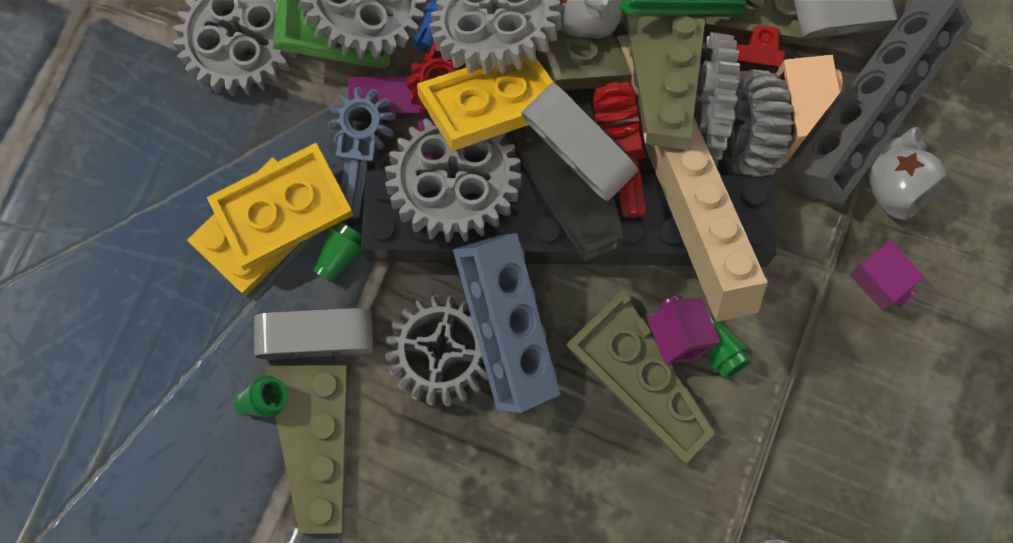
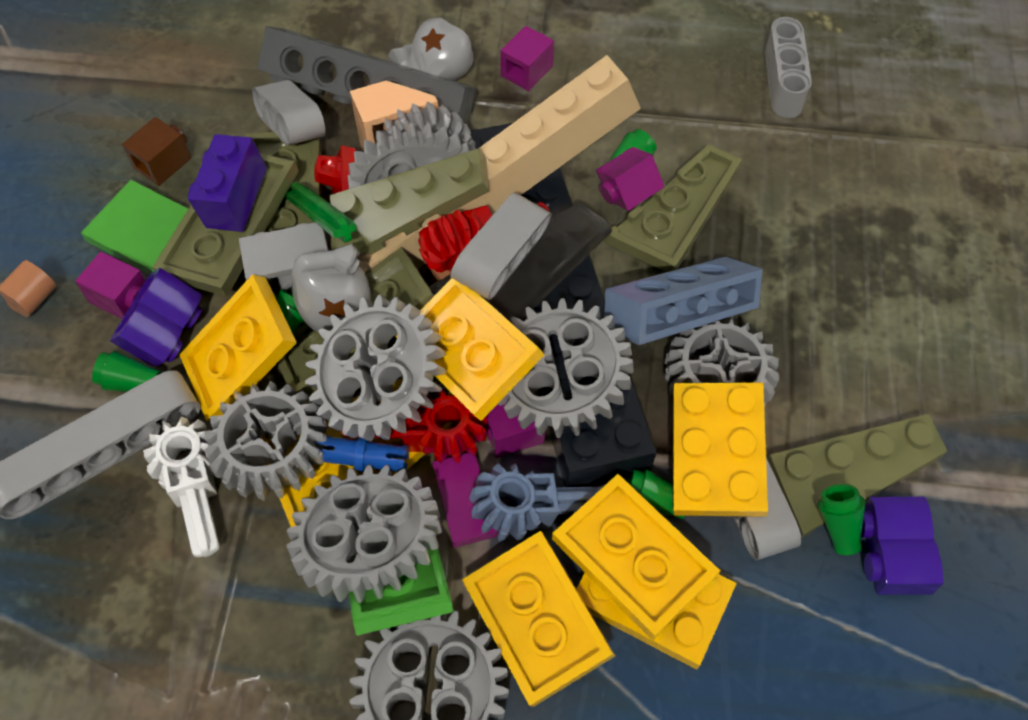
camera: 110 degrees left, 15 degrees down
(226, 444) = (901, 546): none -> dark purple brick
(262, 124) = (537, 619): none -> yellow plate
(350, 306) = (720, 450): none -> yellow plate

